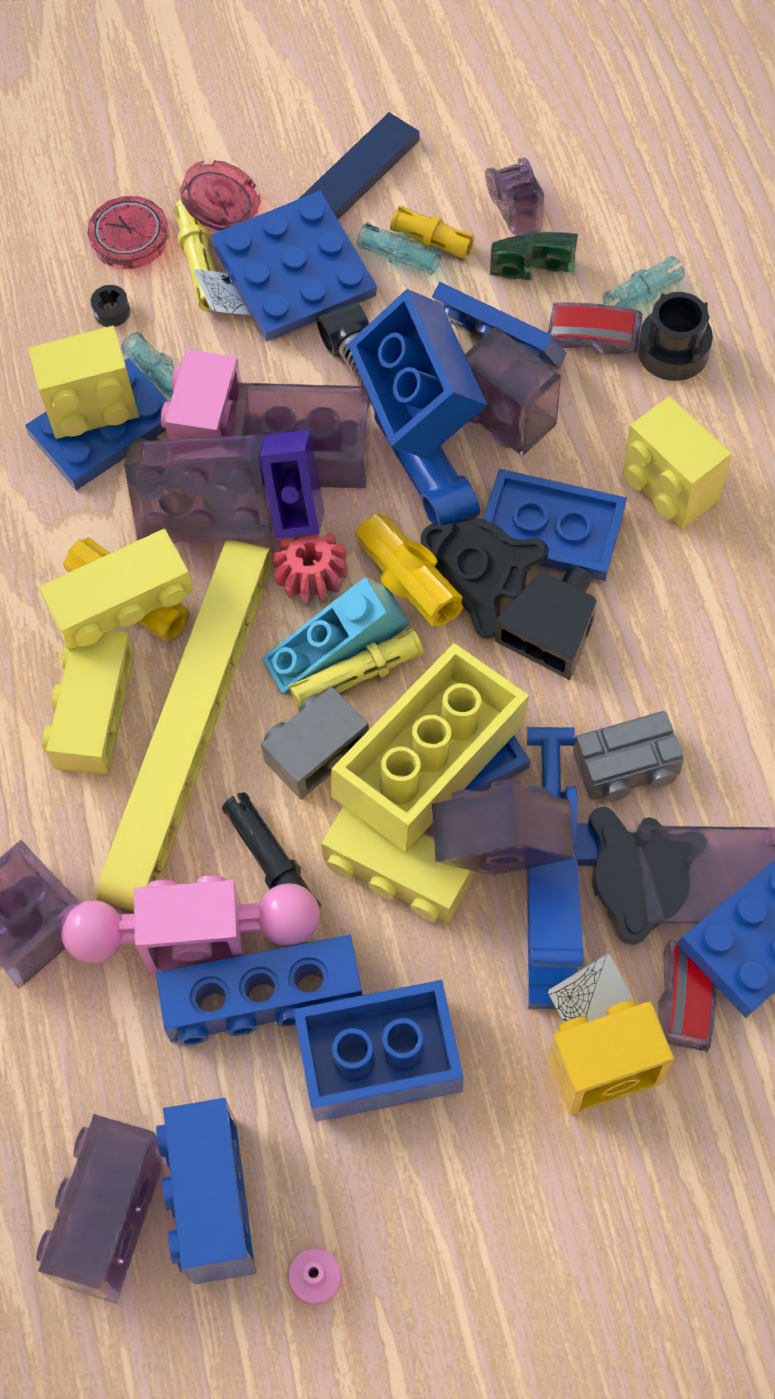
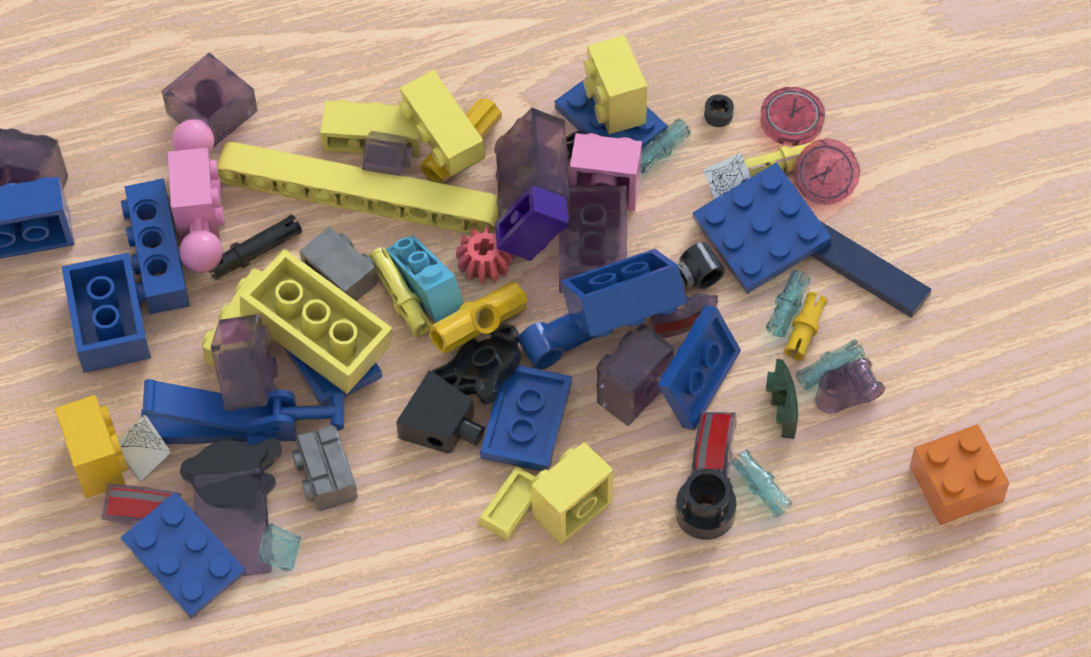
camera: 85 degrees right, 5 degrees down
(148, 670) = (387, 153): none -> brick
(483, 212) = (829, 361): none -> clear light blue pin
(636, 100) = (959, 474): none -> orange brick
(668, 547) = (509, 505): none -> light yellow tile
(746, 814) = (279, 547): none -> clear light blue tile

